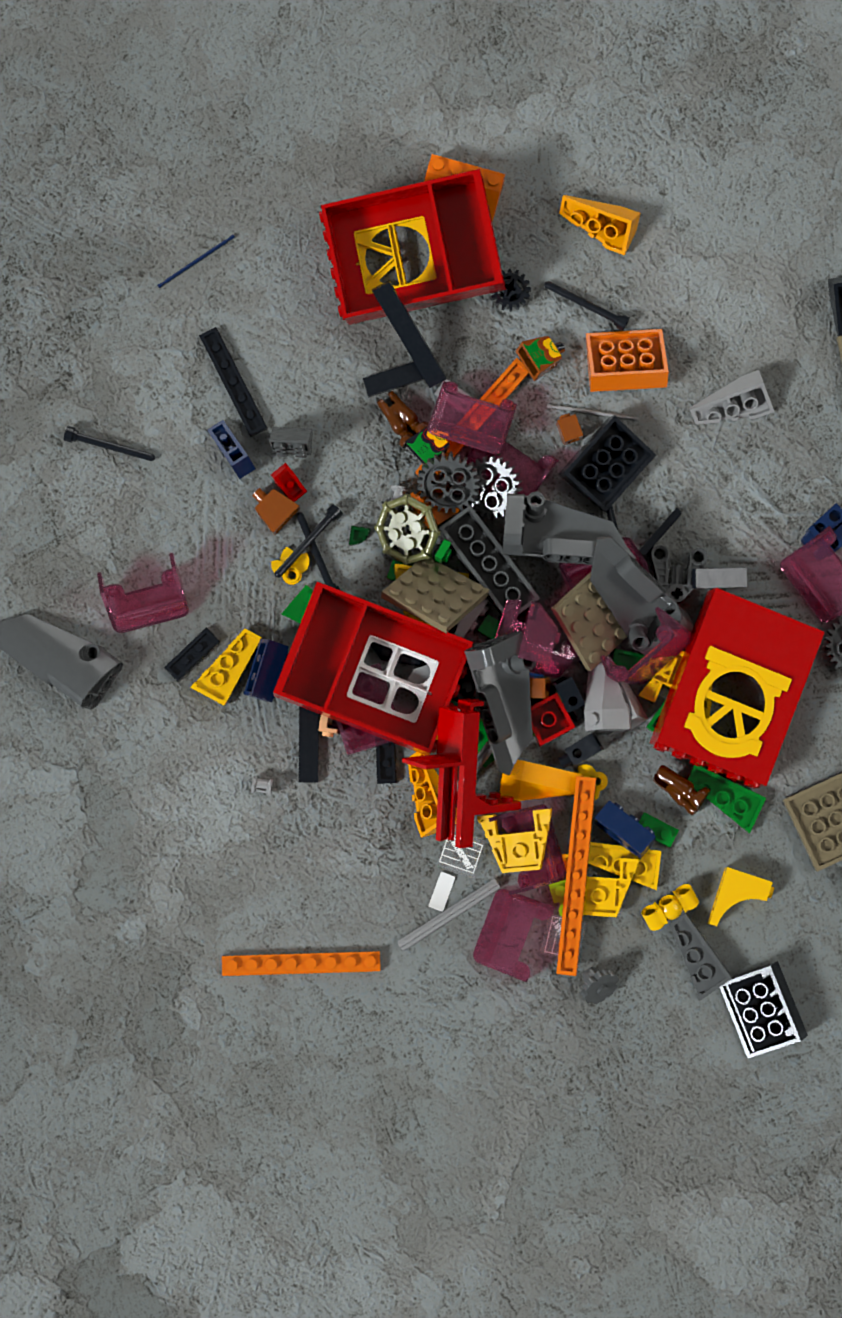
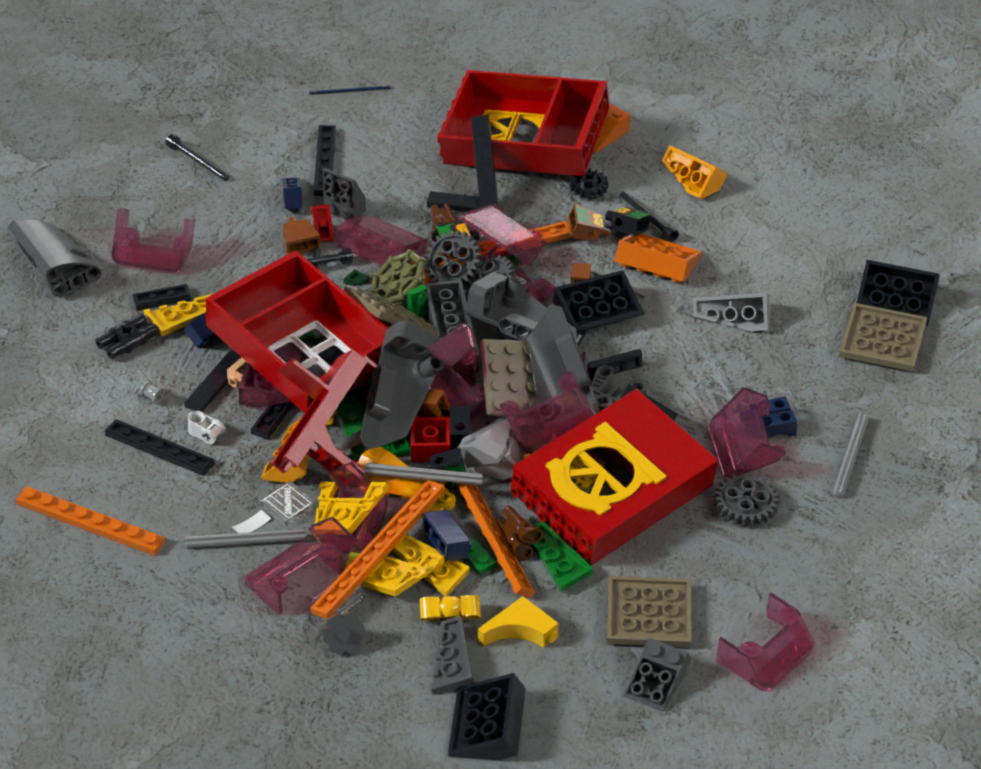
camera: 25 degrees right, 40 degrees down
(189, 717) = (127, 336): none -> black pin
(307, 845) = (159, 447): none -> black tile
(338, 805) = (204, 427): none -> white piece
(352, 471) = (375, 238): none -> clear pink slope
(570, 773) = (423, 474): none -> light grey axle
(577, 330) = (629, 221): none -> black torso
(663, 803) = (497, 540): none -> orange plate

